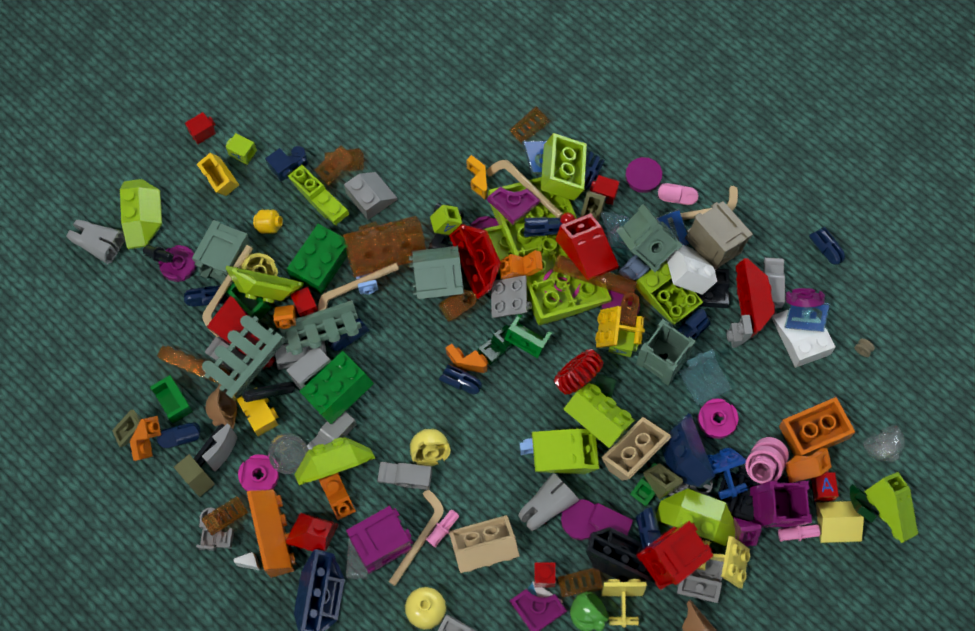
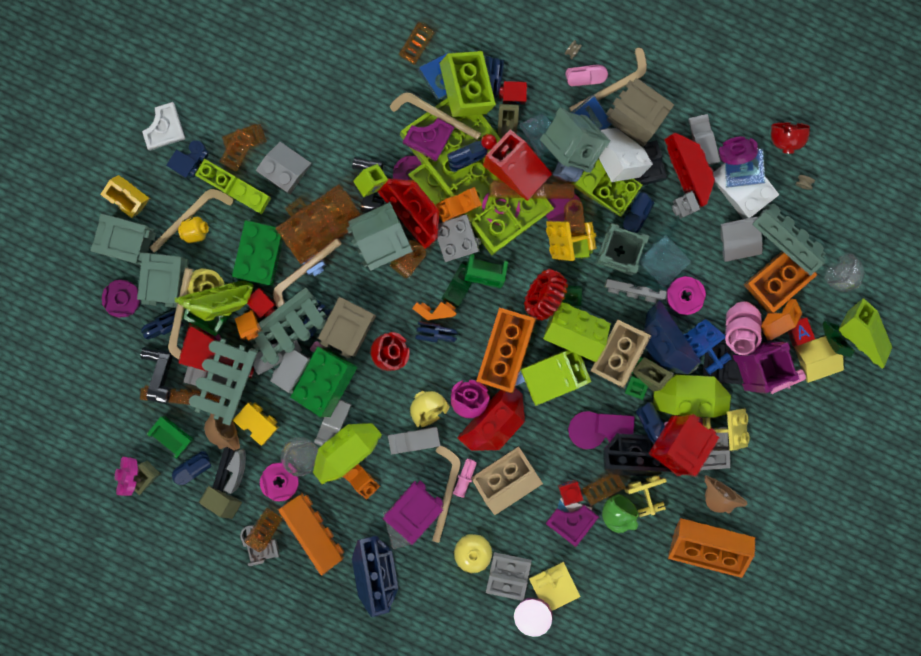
camera: 20 degrees left, 20 degrees up
(97, 240) = (33, 300): light grey piece -> none
(113, 422) = (125, 476): none -> dark pink plate
(140, 212) = (62, 257): lime wedge -> none
(140, 440) = (159, 486): orange slope -> none
(158, 254) = (99, 298): black axle -> none
(177, 348) = (157, 391): none -> black beam
(198, 206) = (122, 239): none -> sand green container
(201, 127) = (87, 148): red brick -> none
(241, 148) = (136, 159): lime brick -> none
(247, 561) = (300, 564): white slope -> none
(268, 391) = (260, 404): black axle -> none
(277, 132) = (165, 128): none -> white tile
(294, 198) = (212, 193): none -> tan piece
(311, 533) = (348, 521): red slope -> none
(377, 346) = (346, 327): none -> dark tan container
(410, 381) = (389, 351): none -> red cylinder
(472, 450) = (469, 398): none -> dark pink cylinder
(478, 183) = (388, 123): light orange slope -> none
(491, 483) = (496, 424): none -> red wedge
(522, 412) = (506, 350): none -> orange slope
(547, 503) = (553, 425): light grey piece -> none
(643, 174) = (547, 63): magenta tile -> none
(666, 398) = (633, 292): none -> light grey wing
(671, 169) = (573, 49): none -> dark tan bush
(747, 532) = (739, 398): magenta slope -> none
(787, 379) = (740, 239): none -> light grey slope
(828, 246) = (746, 86): dark blue arm -> none
(834, 390) = (789, 239): none -> sand green fence
(859, 300) = (789, 136): none -> red cylinder

